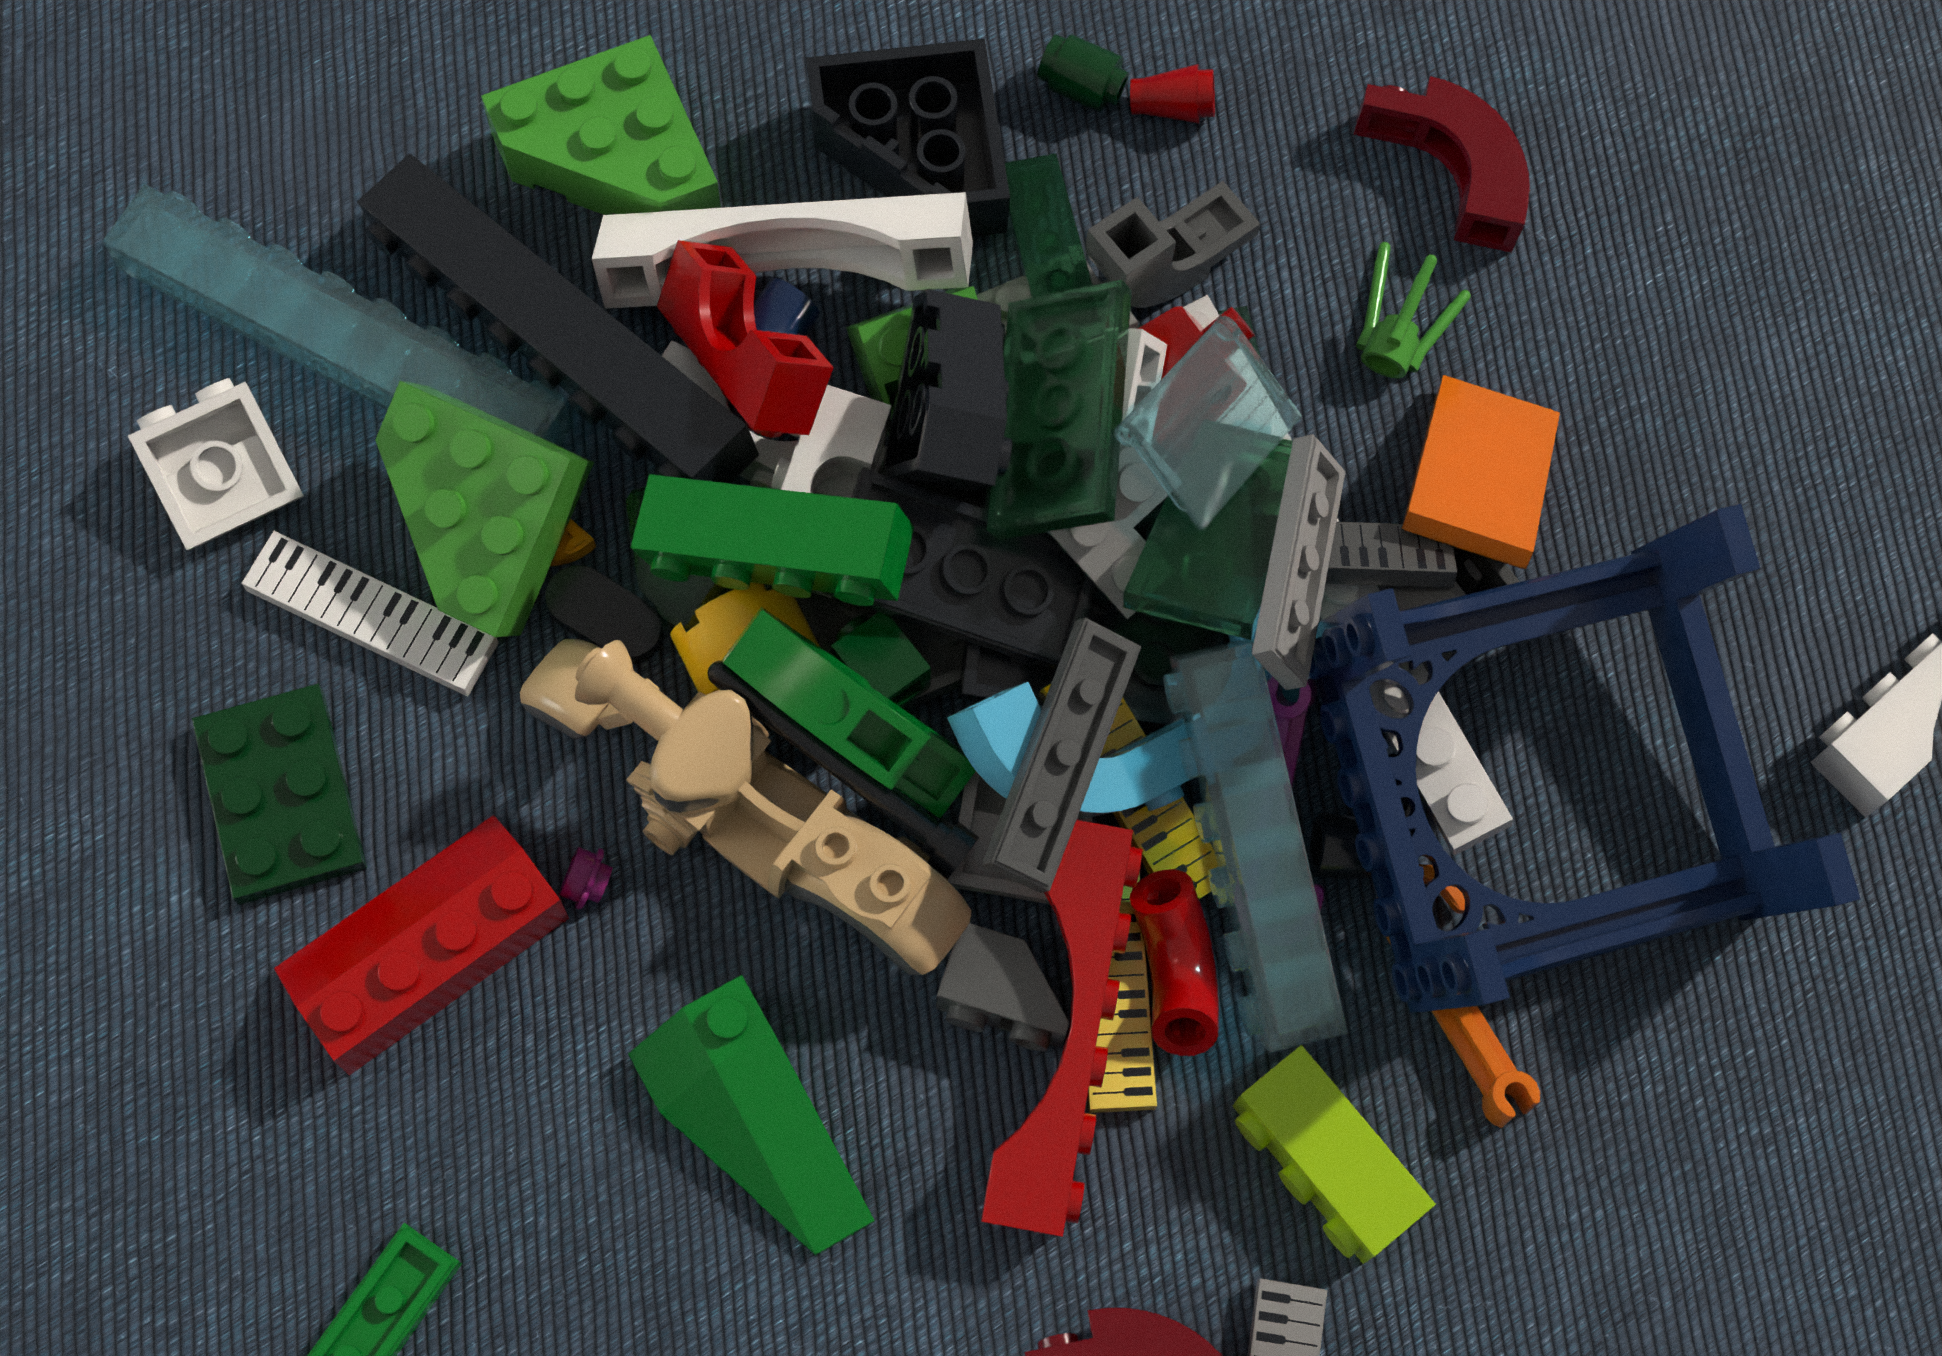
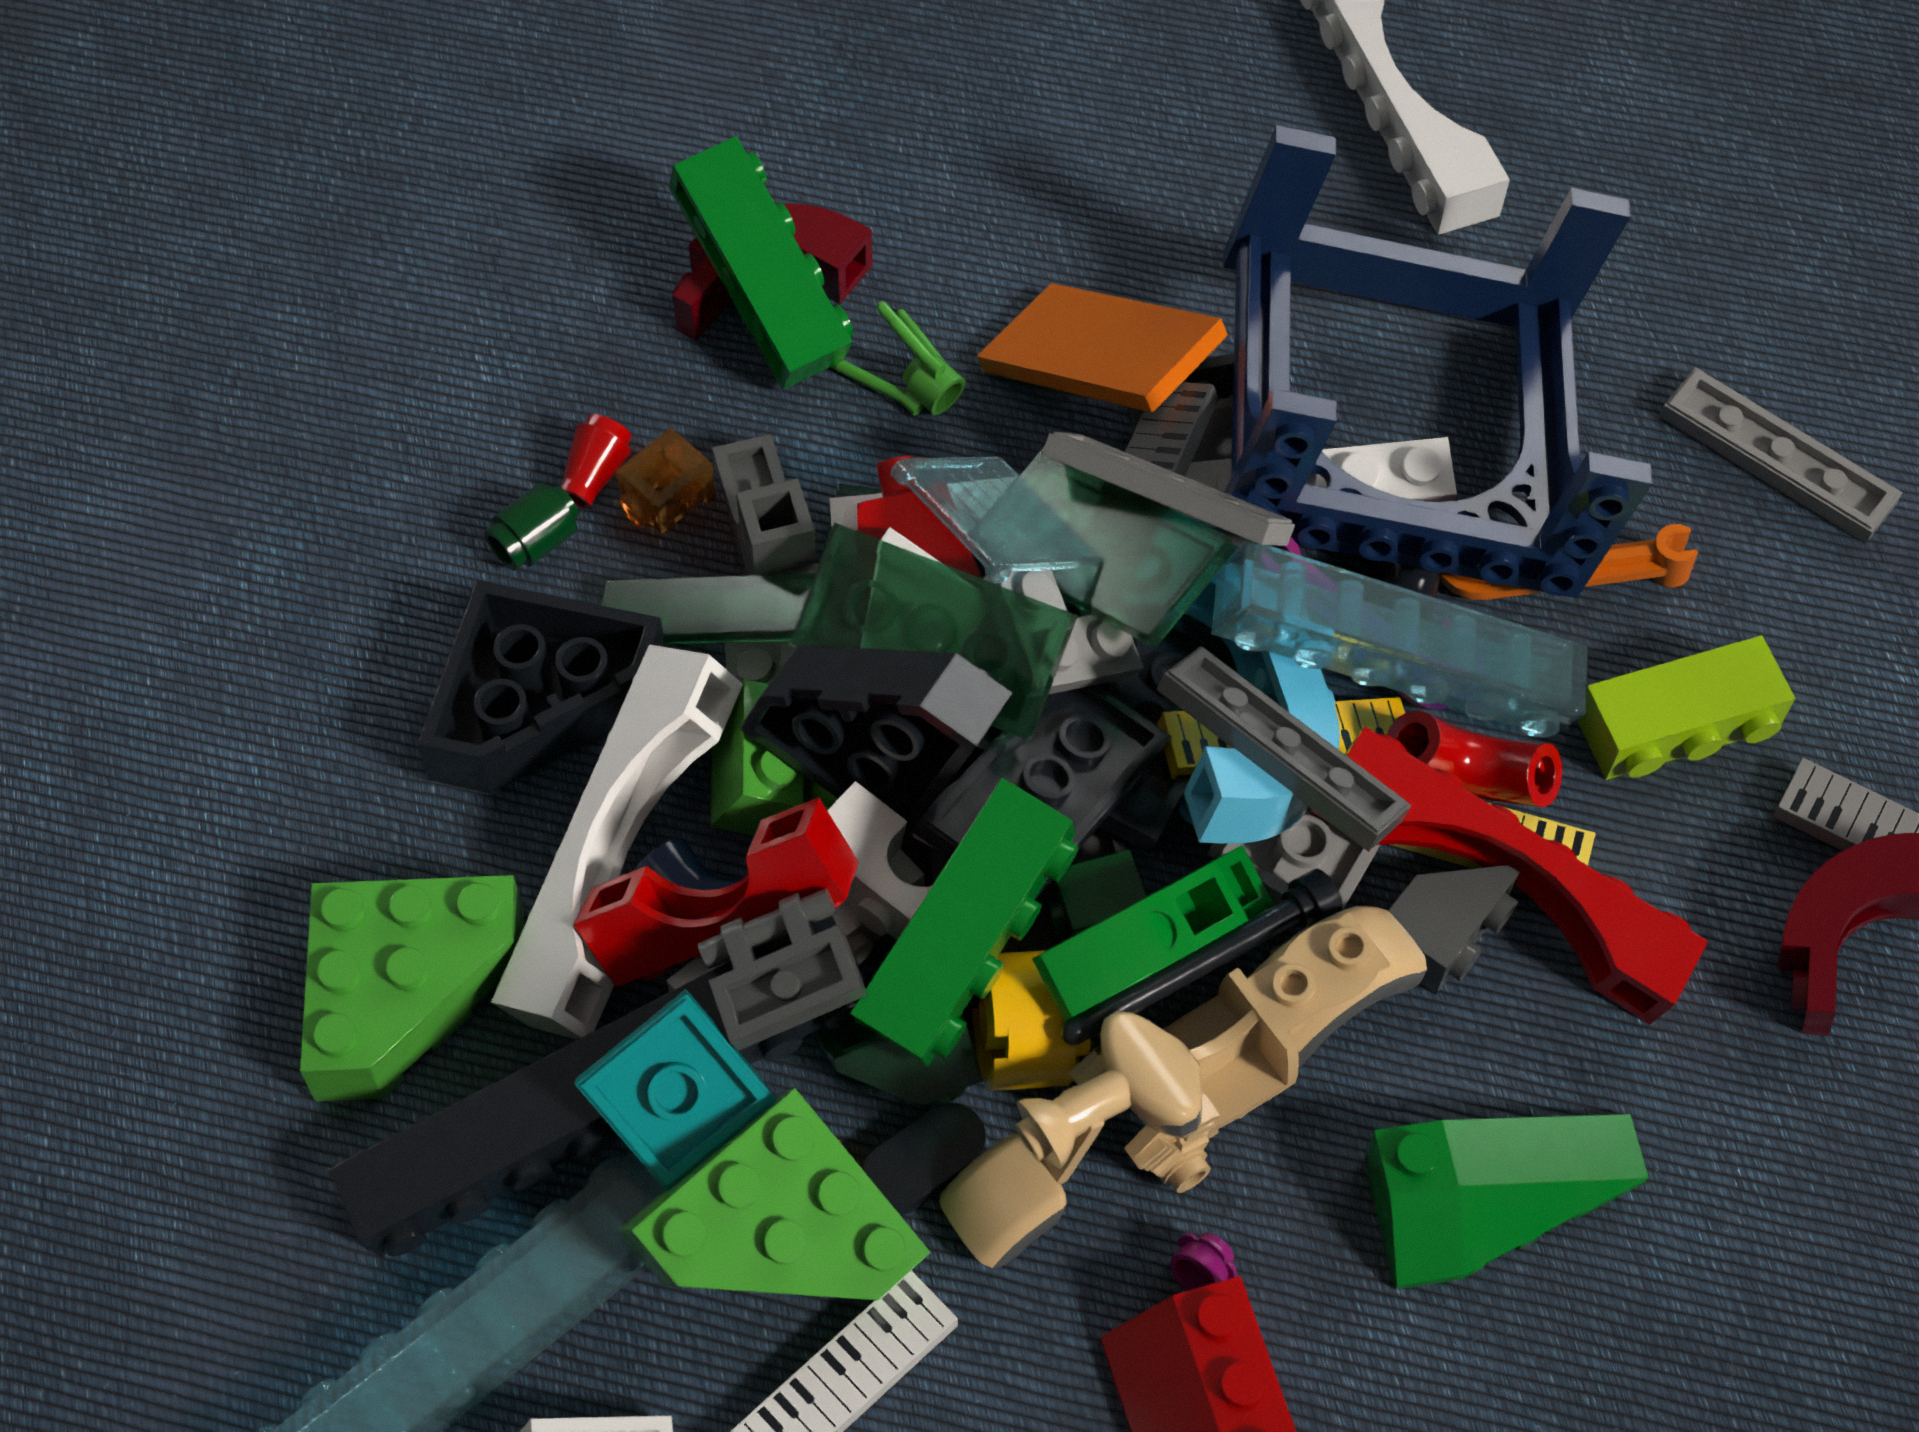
camera: 65 degrees left, 10 degrees down
(541, 369) = (675, 1090): none -> teal plate
(654, 415) = (789, 984): none -> dark grey plate
(1173, 157) = (665, 482): none -> clear orange brick
(1429, 137) = (761, 262): none -> green brick
(1693, 1183) = (1780, 455): none -> light grey tile

